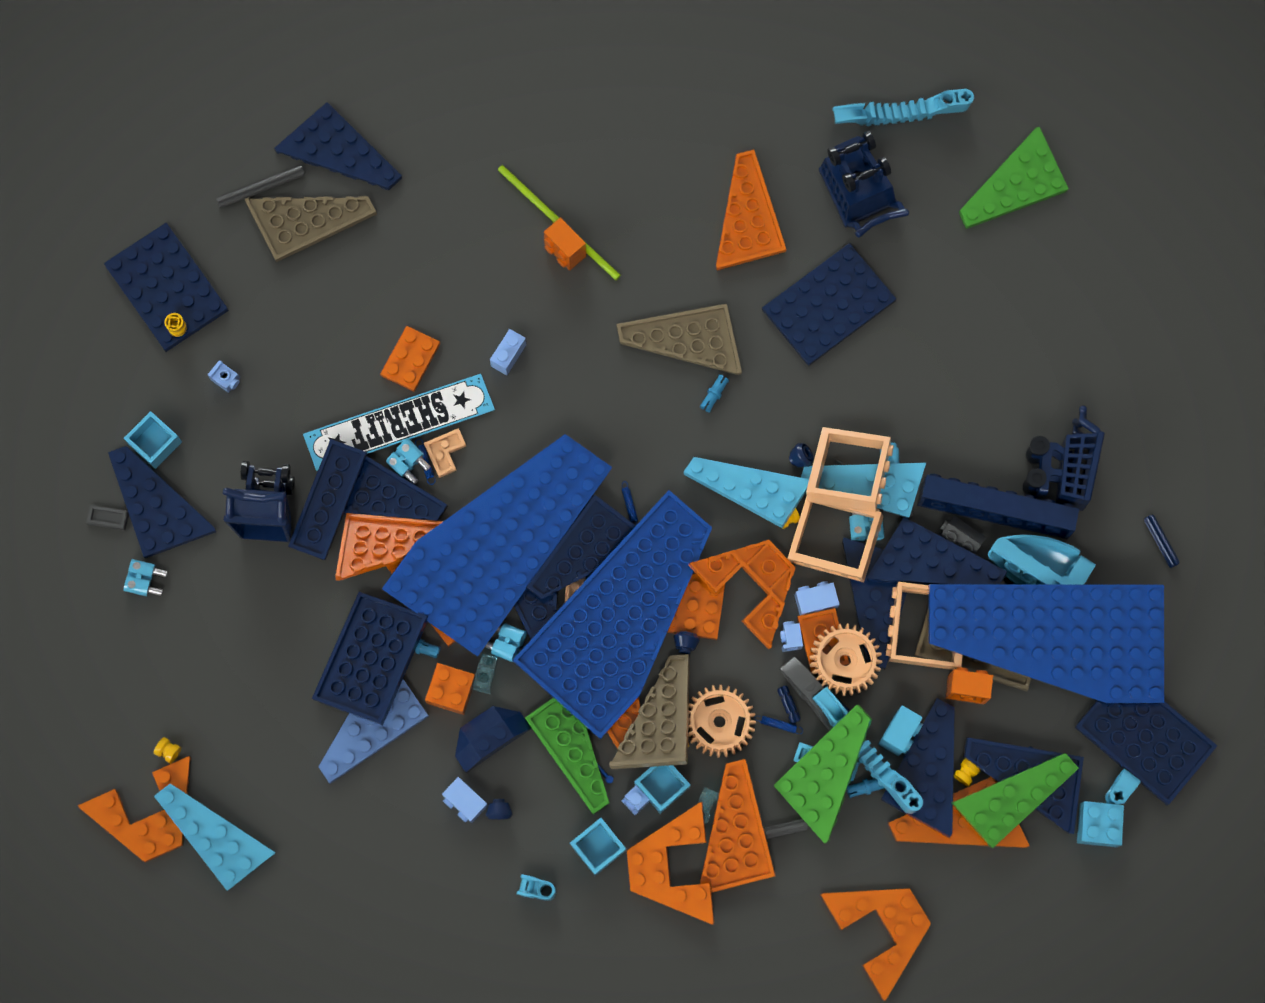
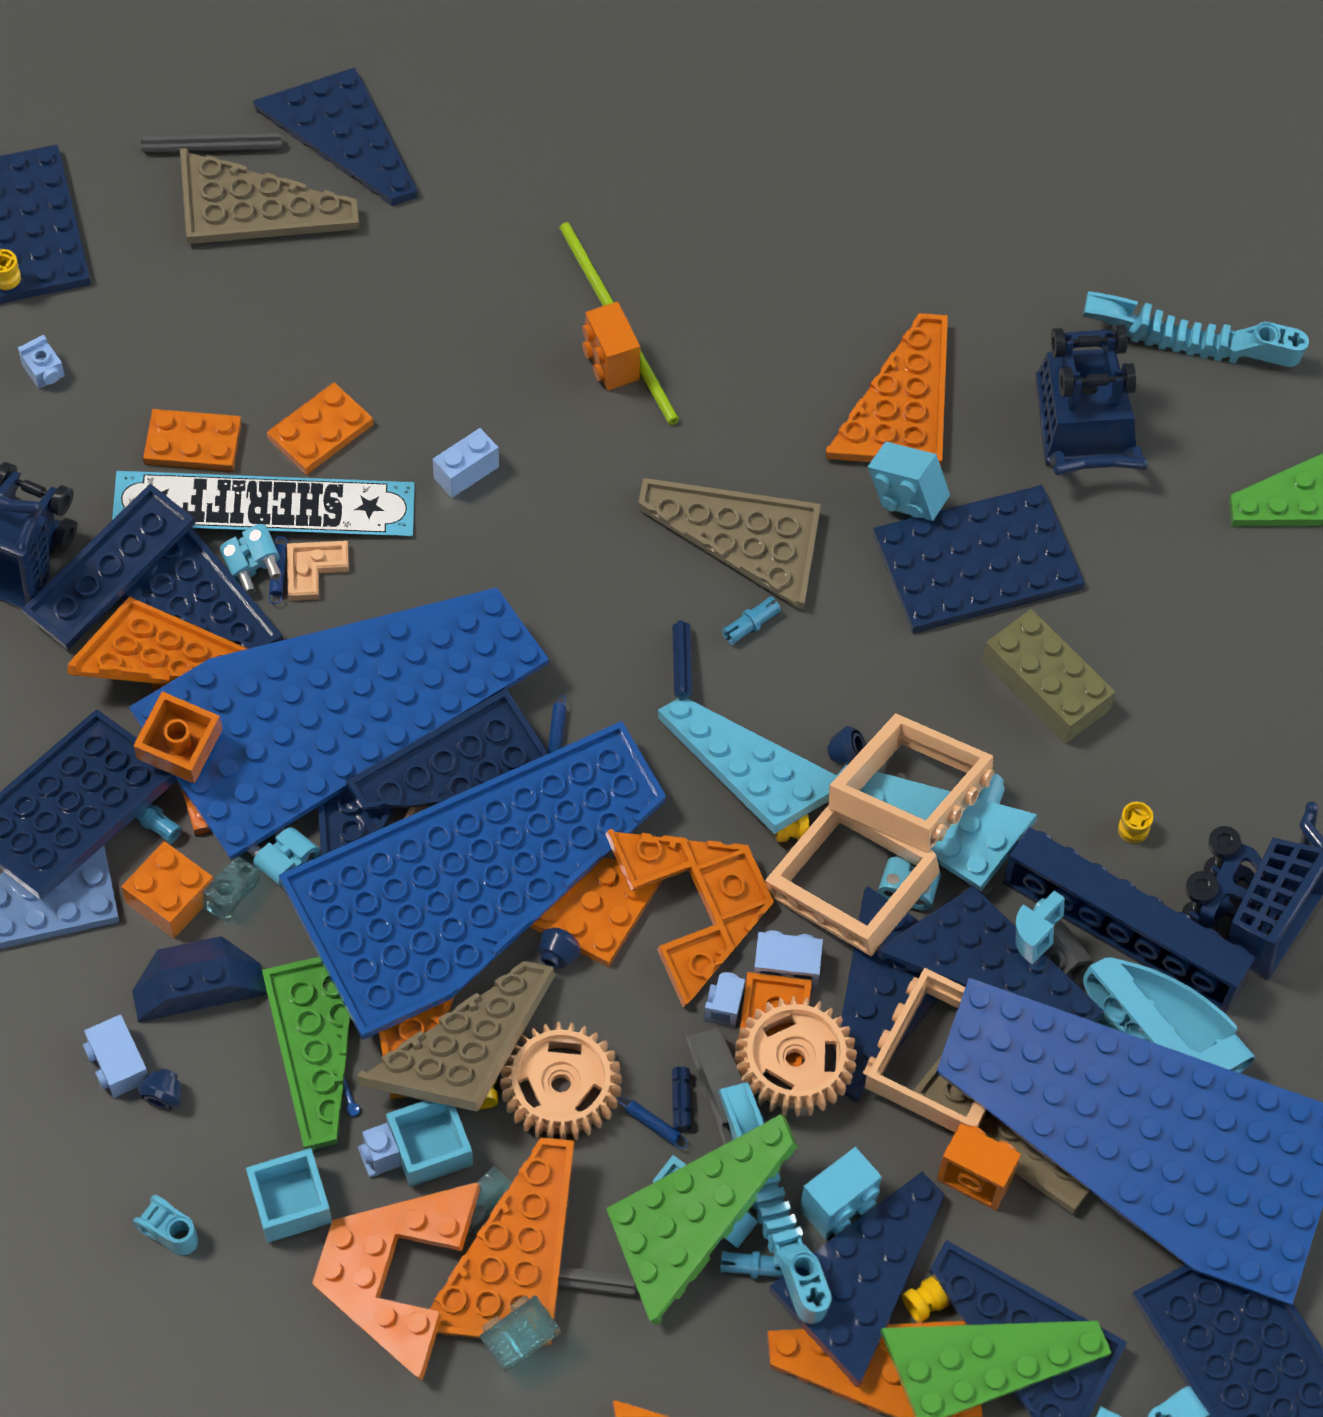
camera: 20 degrees right, 15 degrees down
(337, 394) = (192, 440): none -> orange plate
(422, 600) = (178, 737): none -> orange brick
(685, 434) = (682, 659): none -> dark blue axle
(758, 878) = (519, 1332): none -> clear light blue brick
(775, 273) = (909, 481): none -> medium azure piece
(898, 368) = (1048, 676): none -> olive brick
(951, 537) = (1036, 927): none -> medium azure brick
(982, 442) = (1135, 822): none -> yellow wheel

